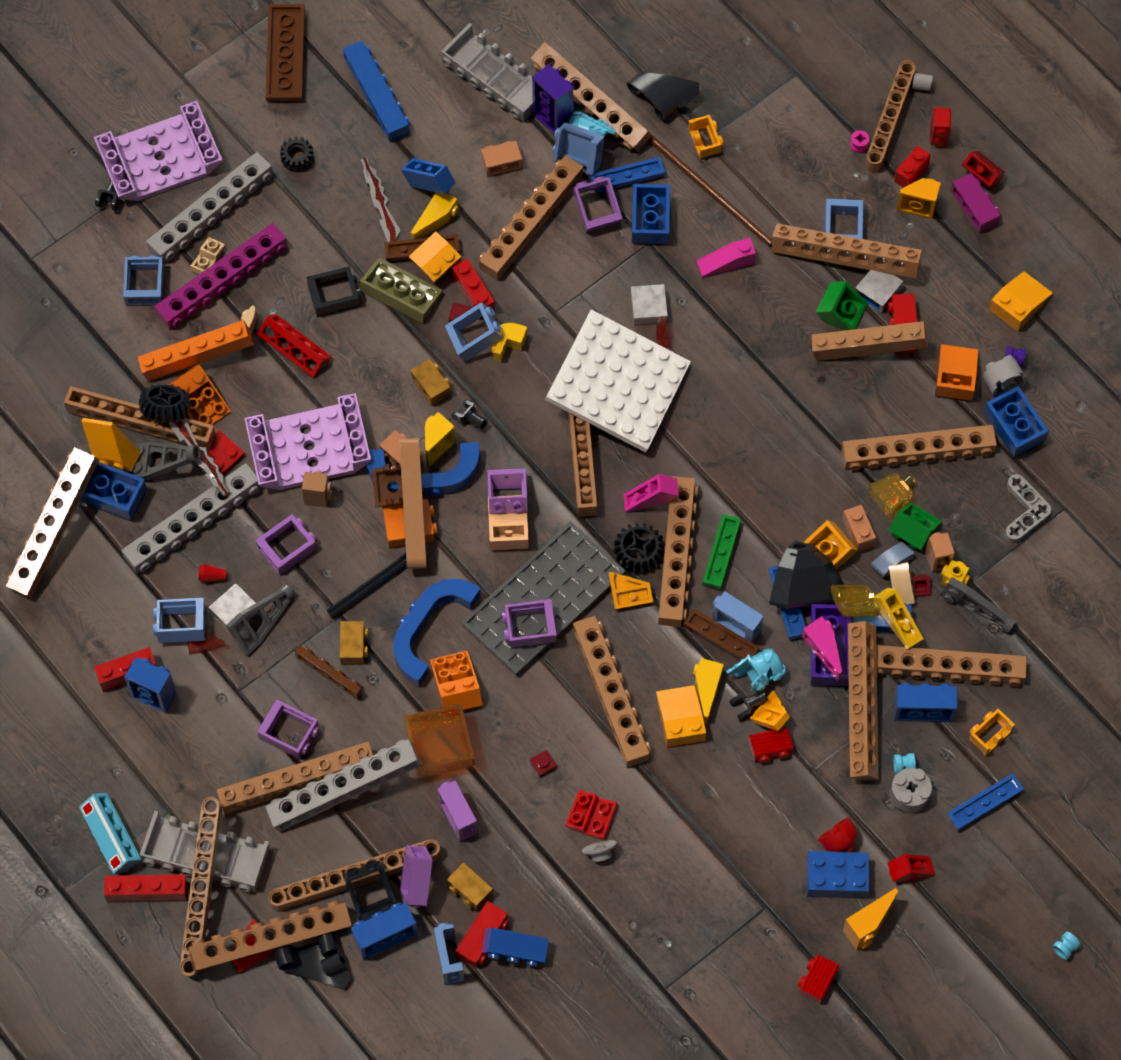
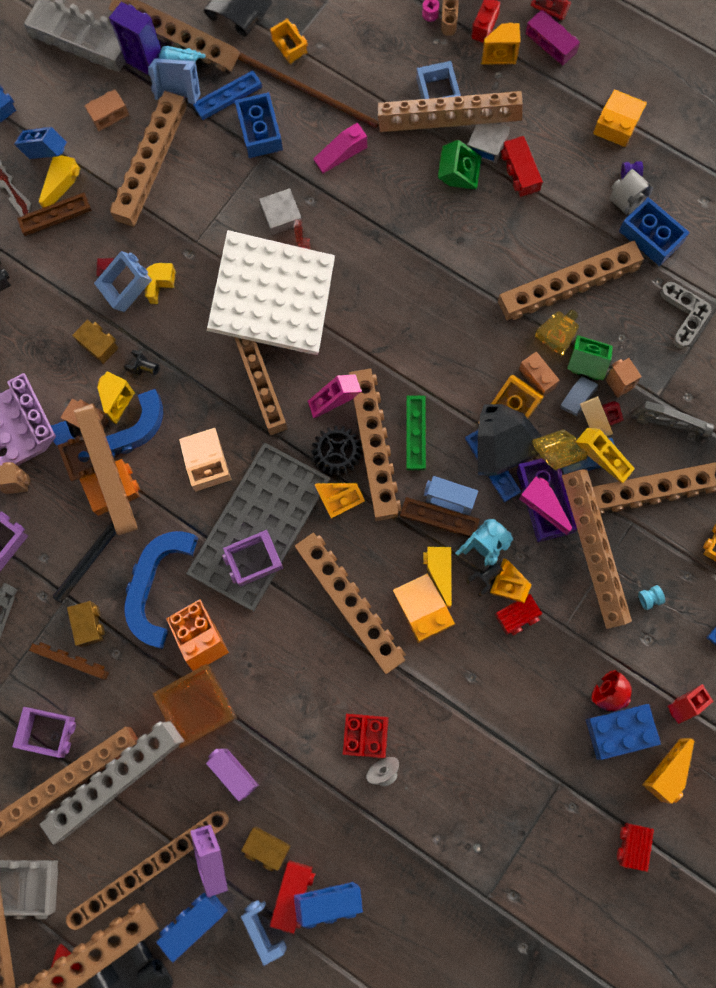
camera: 10 degrees left, 10 degrees up
(366, 912) = (177, 900): black window -> none
(400, 290) = (44, 259): olive slope -> none
(435, 257) = (68, 219): light orange slope -> none
(471, 285) = (109, 236): red brick -> none
(516, 480) = (183, 420): medium lavender window -> none
(543, 763) = (303, 695): dark red plate -> none
(602, 222) = (217, 144): medium lavender window -> none
(869, 341) = (497, 190): medium nougat brick -> none
(905, 799) = (678, 624): light grey brick -> none
(925, 702) = (655, 531): blue brick -> none
(956, 372) = (584, 200): orange slope -> none
(956, 570) = (641, 393): yellow brick -> none

